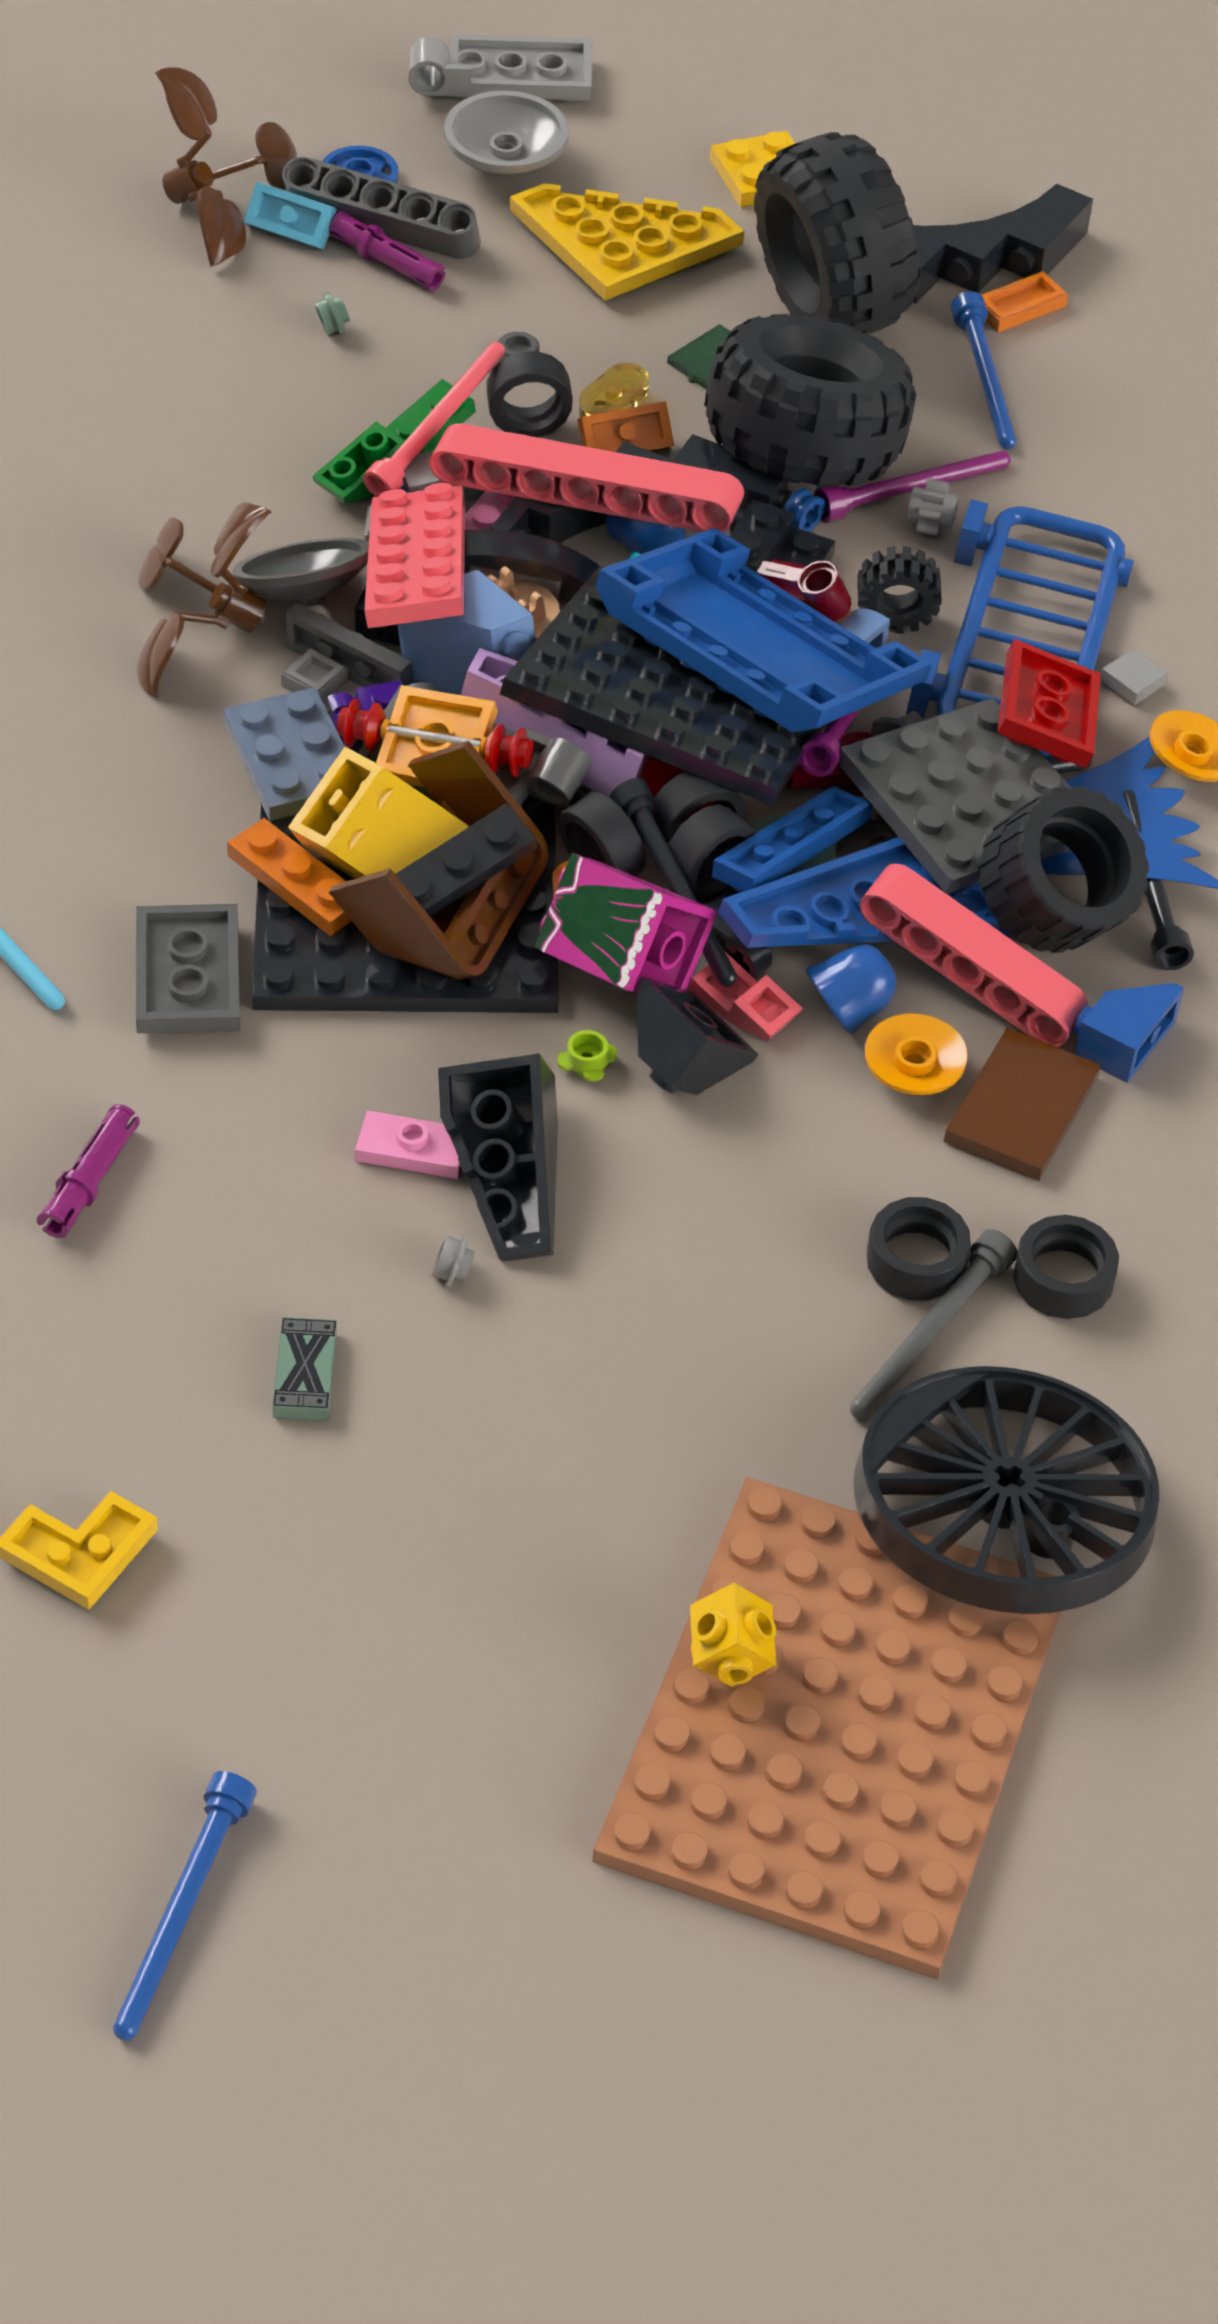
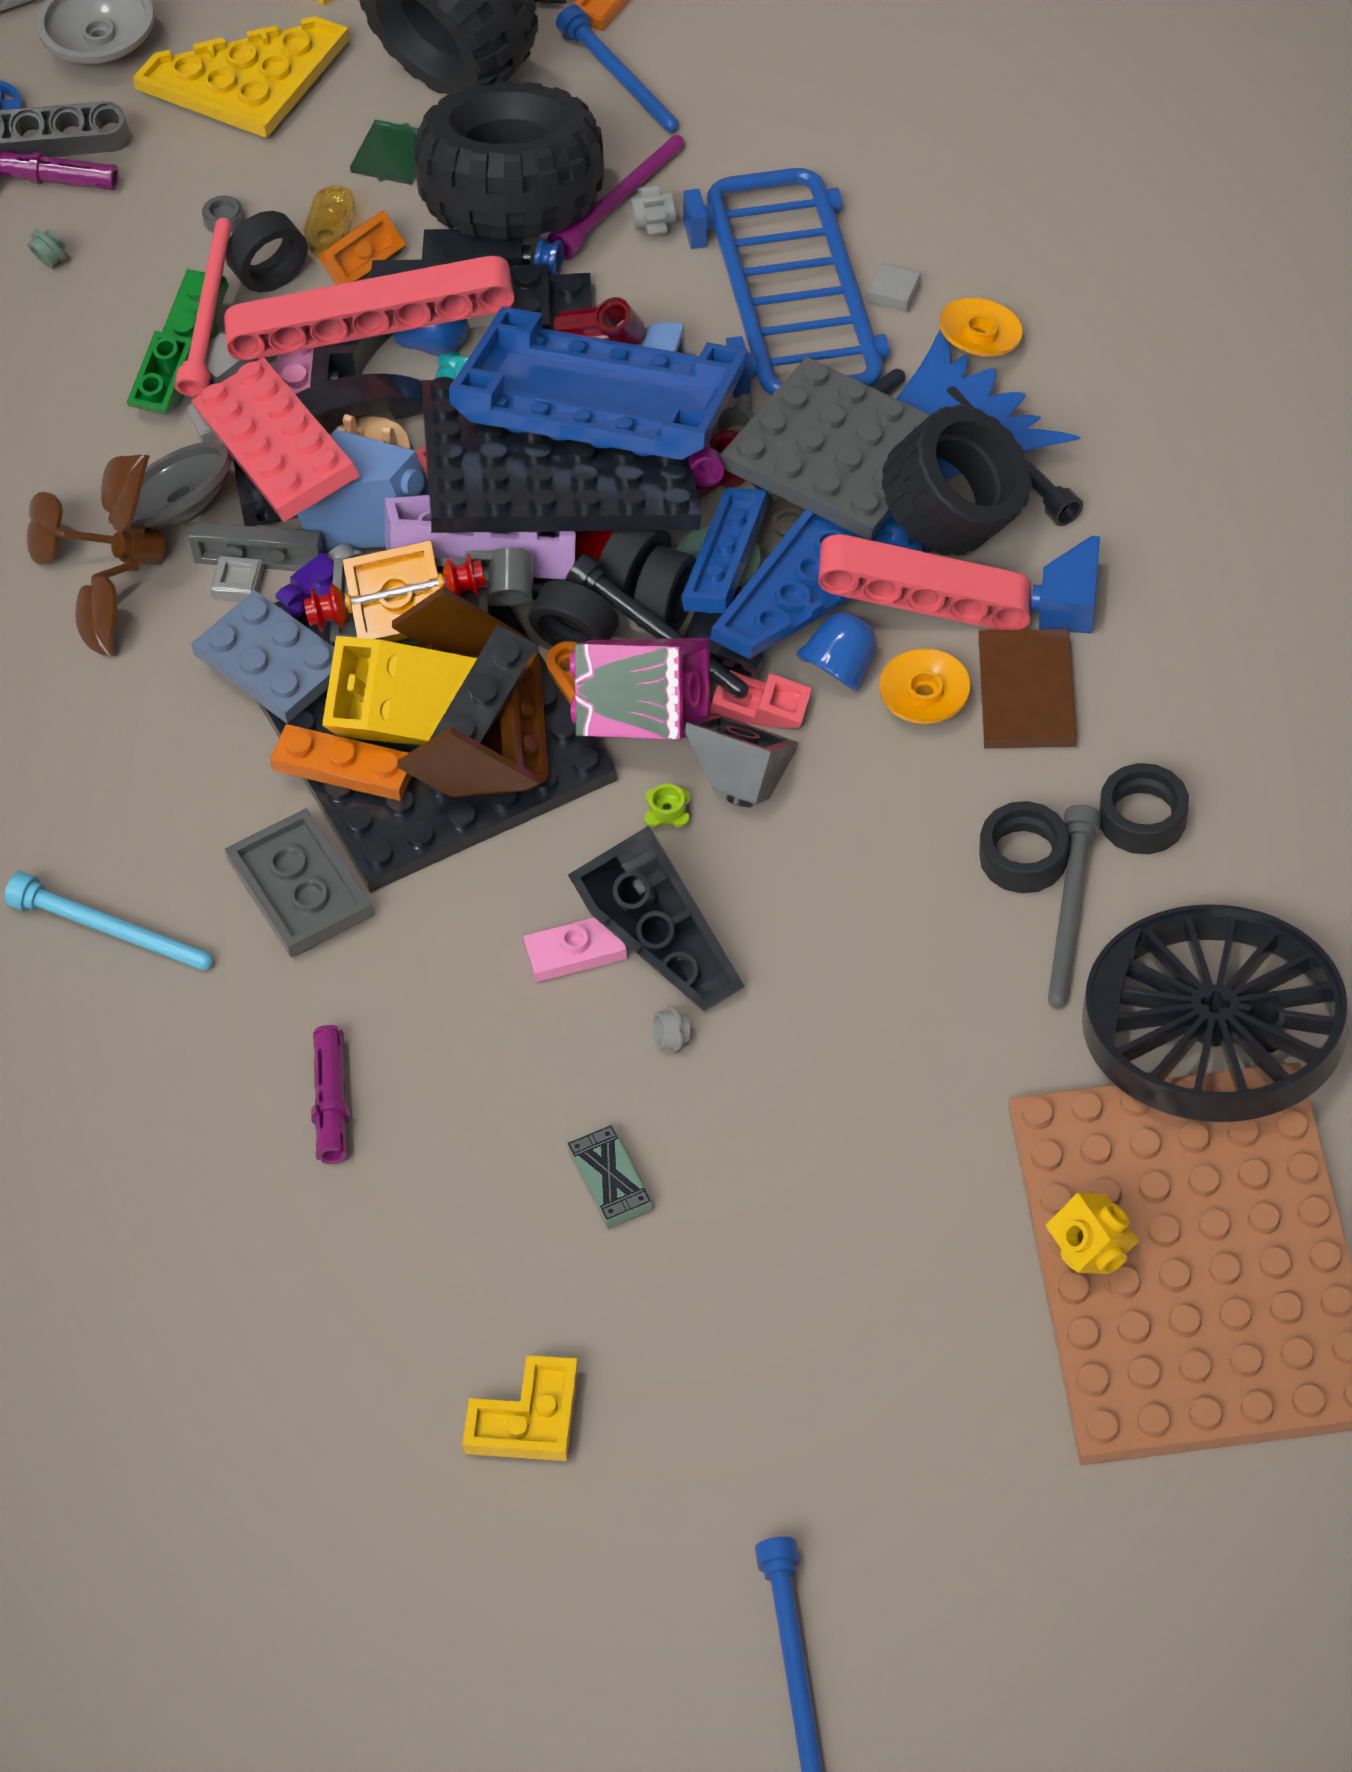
camera: 20 degrees left, 5 degrees up
(901, 570) = (680, 276): black tyre -> none
(1049, 704) = (856, 342): red plate -> none

